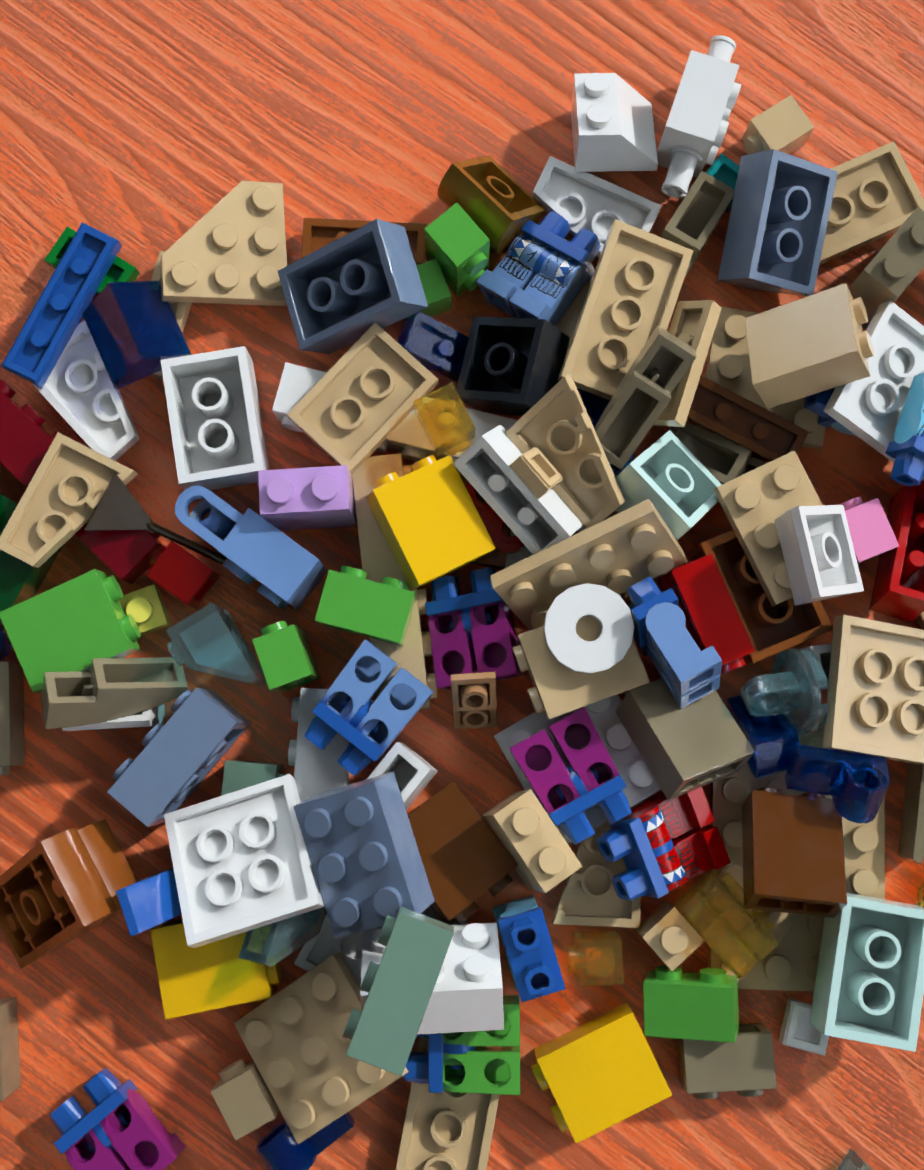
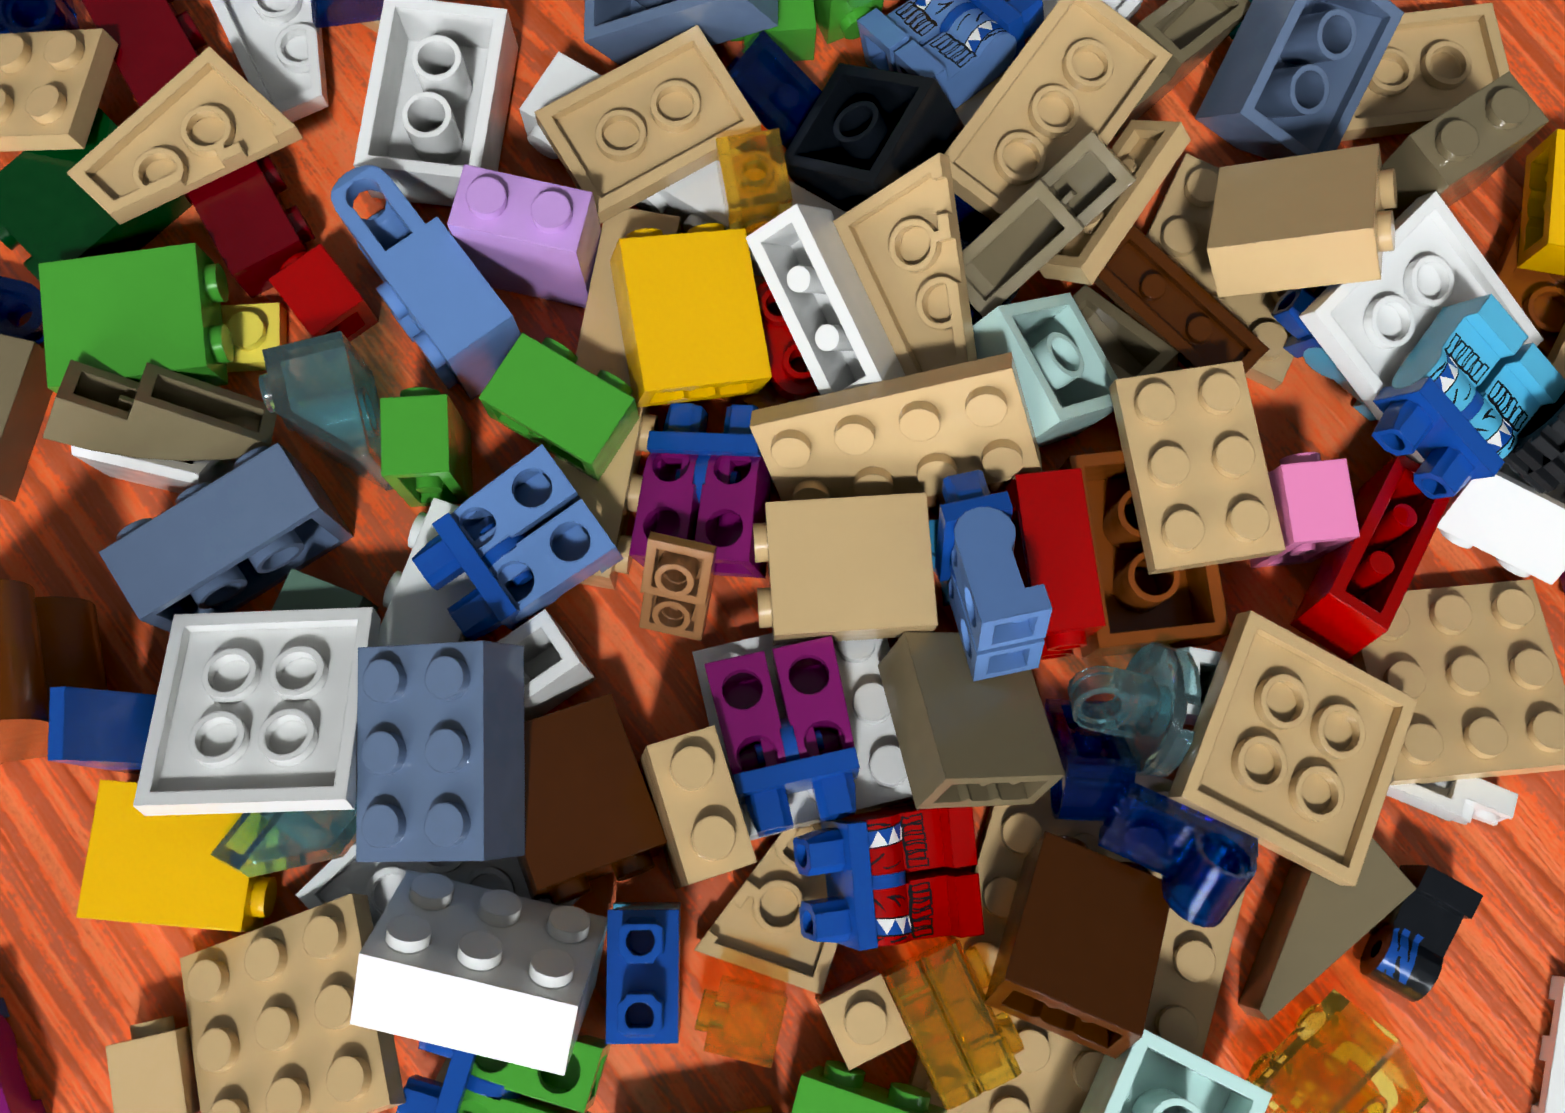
camera: 10 degrees right, 5 degrees down
(122, 512) = (260, 178): dark brown piece -> none
(398, 990) = (413, 958): sand green brick -> none
(536, 472) = (860, 281): tan tile -> none
(607, 609) = (875, 480): white tile -> none
(818, 553) = (1237, 506): white slope -> none

